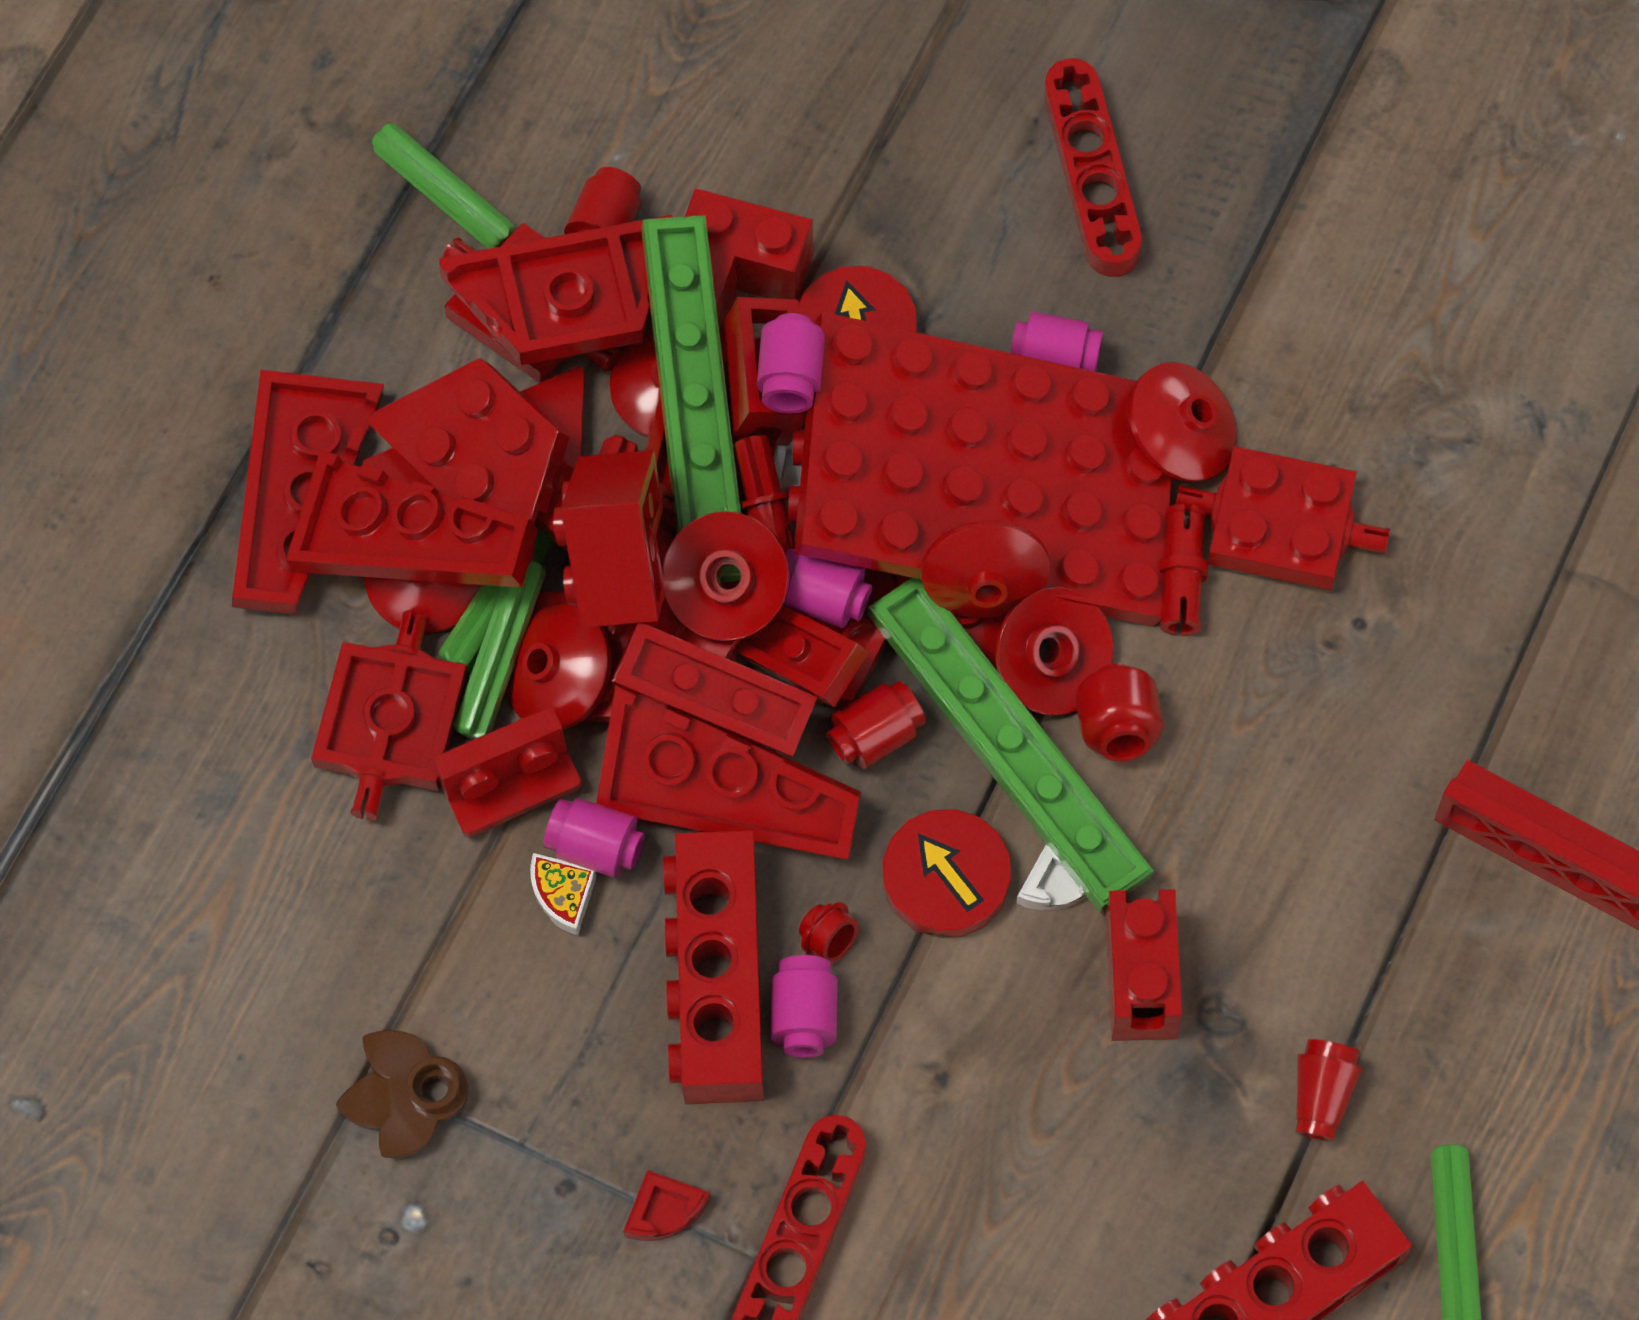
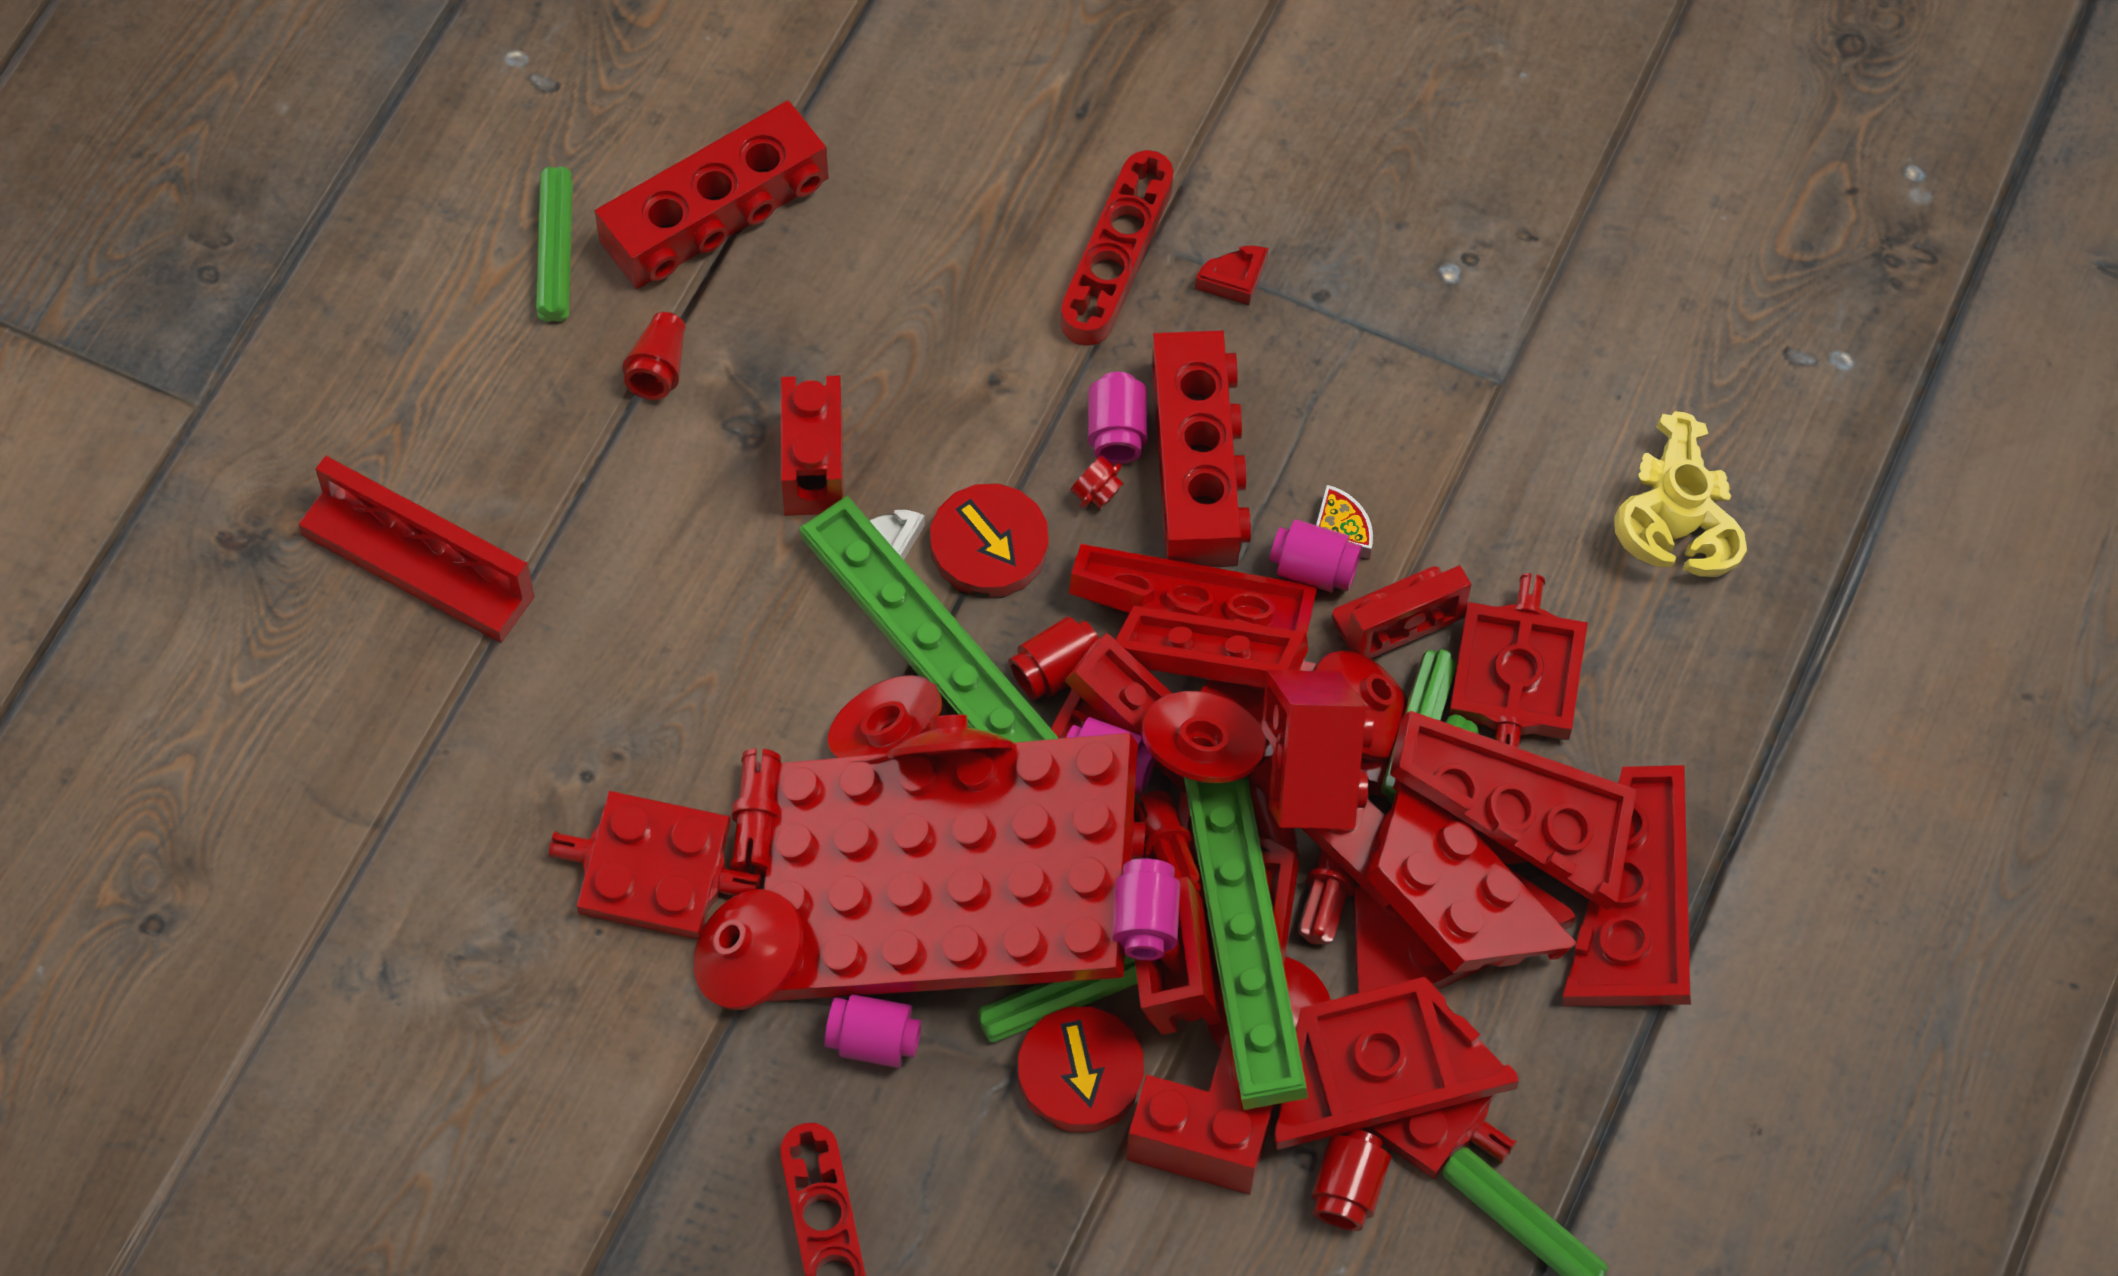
camera: 175 degrees right, 5 degrees down
(191, 908) = (1679, 504): none -> light yellow animal
(394, 1093) = (1476, 358): reddish brown plate -> none
(1119, 712) = (824, 667): red head -> none

